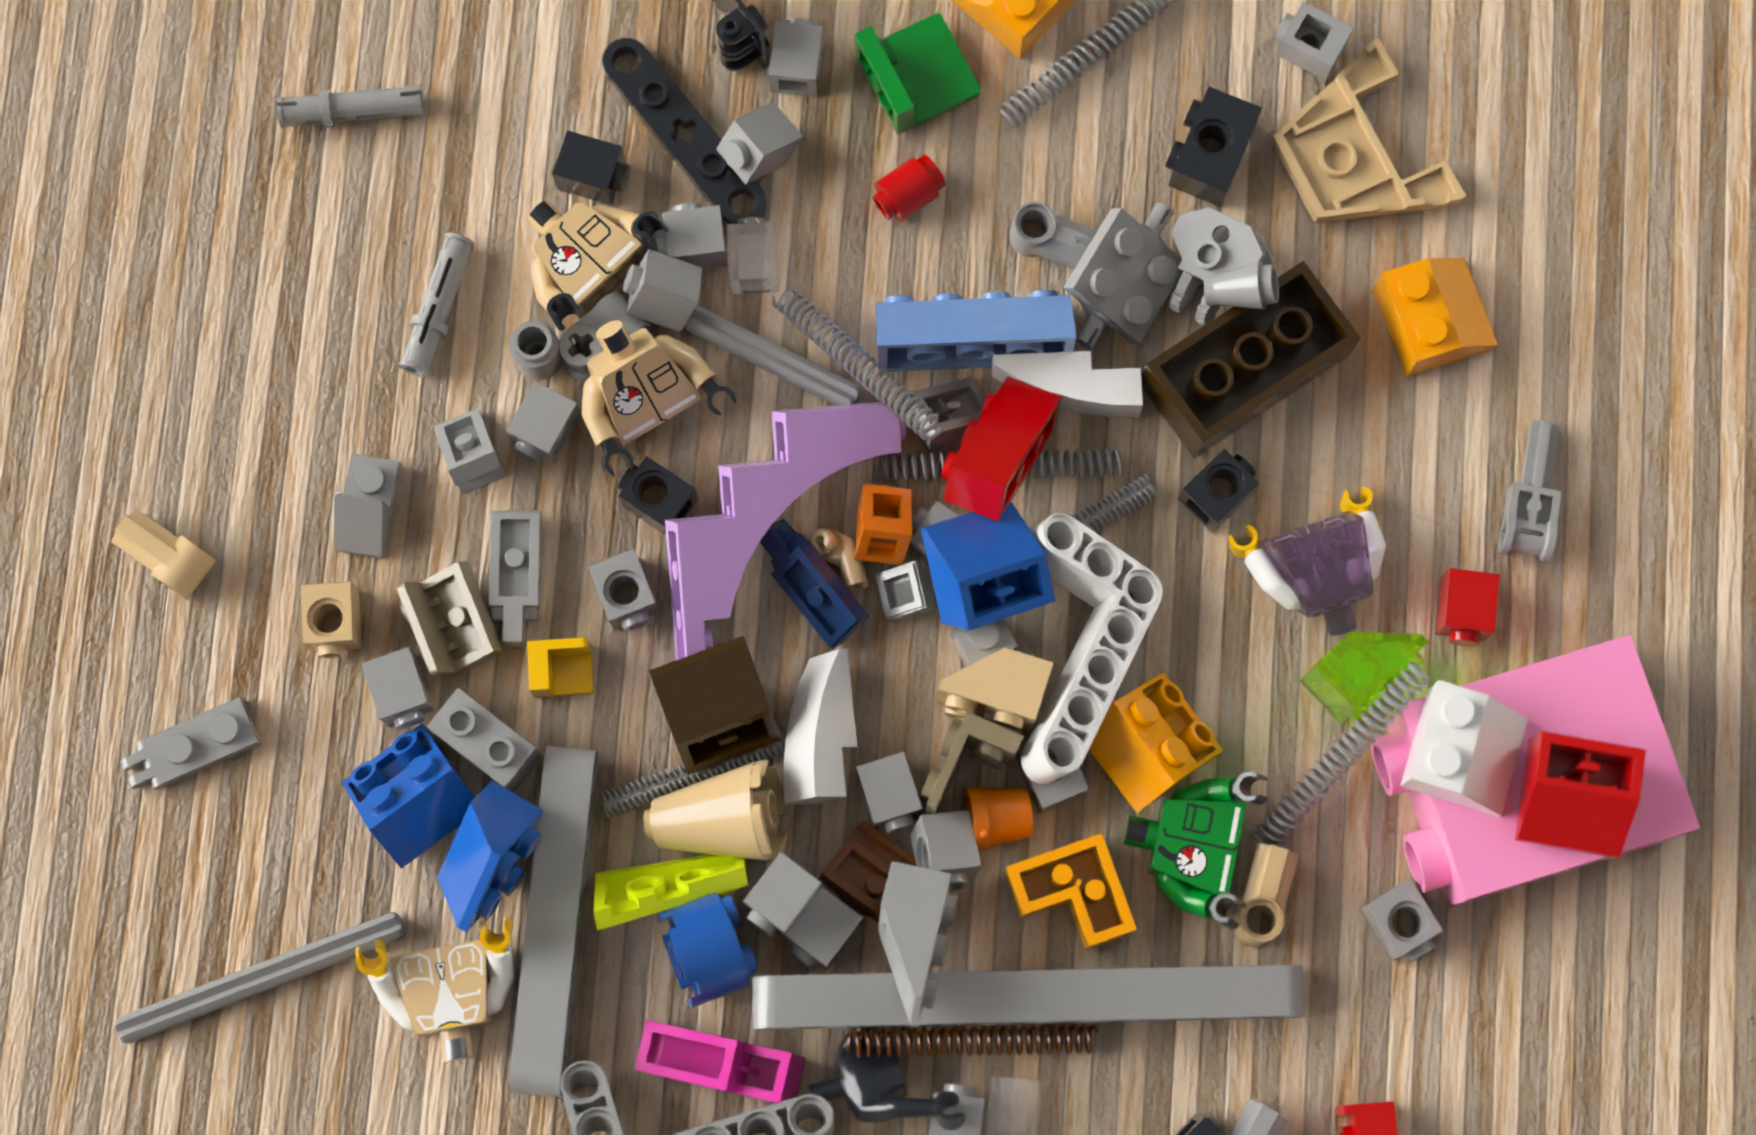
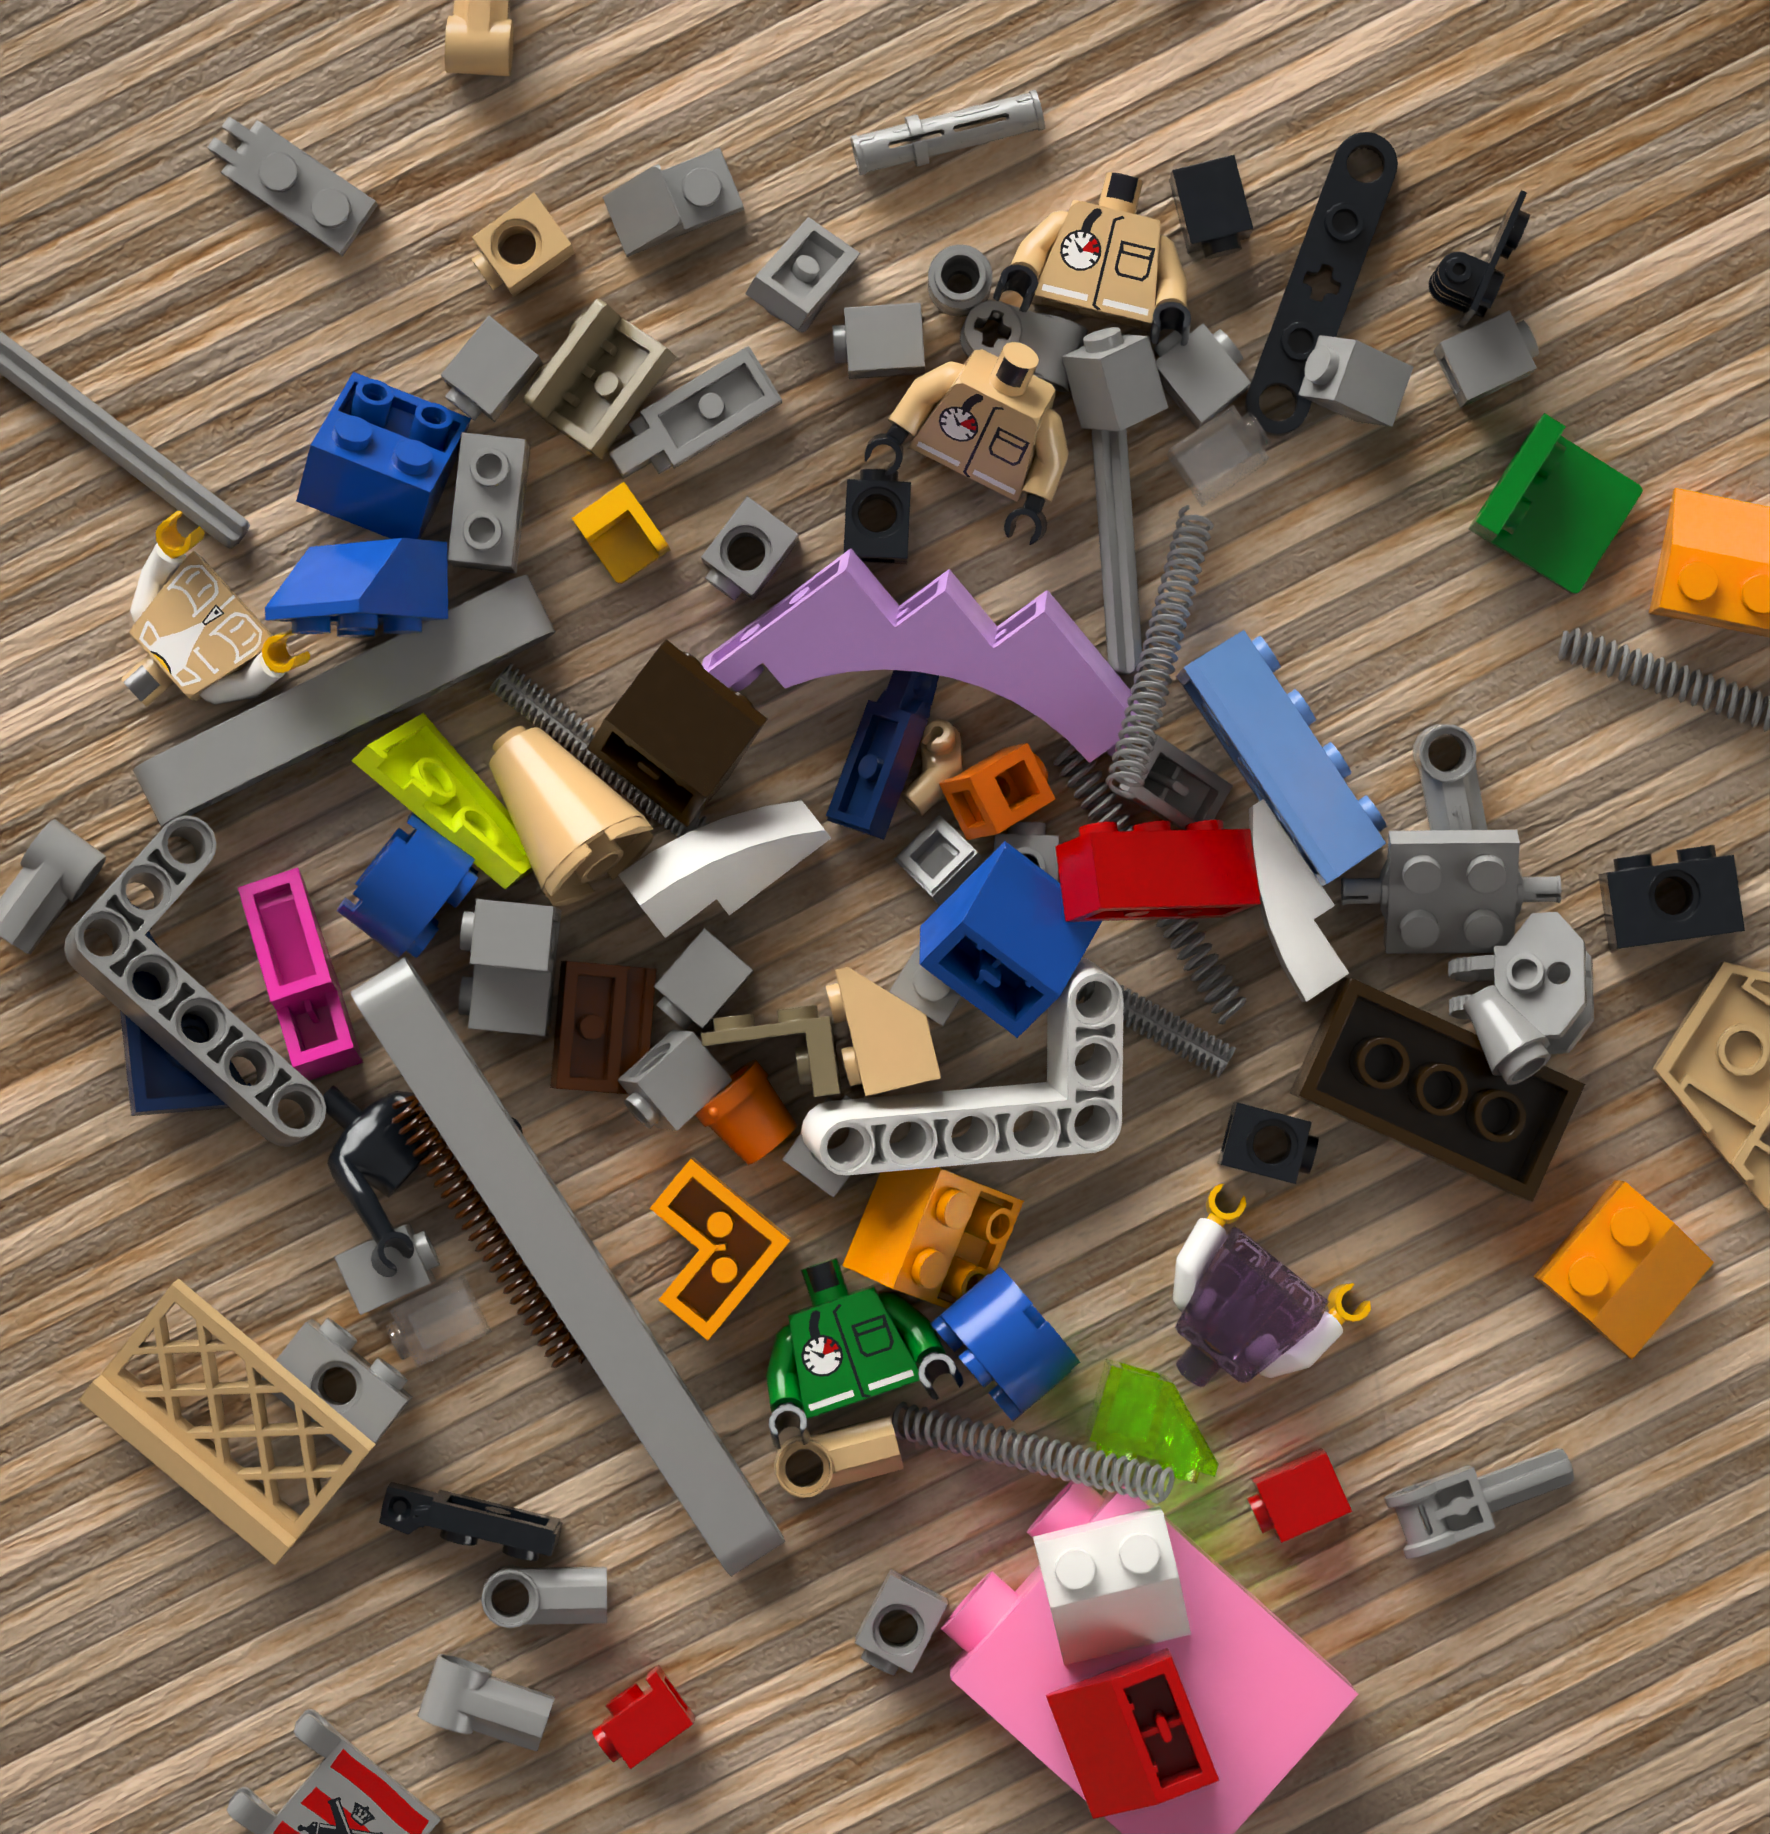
camera: 60 degrees right, 10 degrees up
(908, 188) = (1407, 582): red brick -> none
(910, 927) = (561, 1094): light grey slope -> none
(1254, 732) = (1006, 1343): none -> blue brick

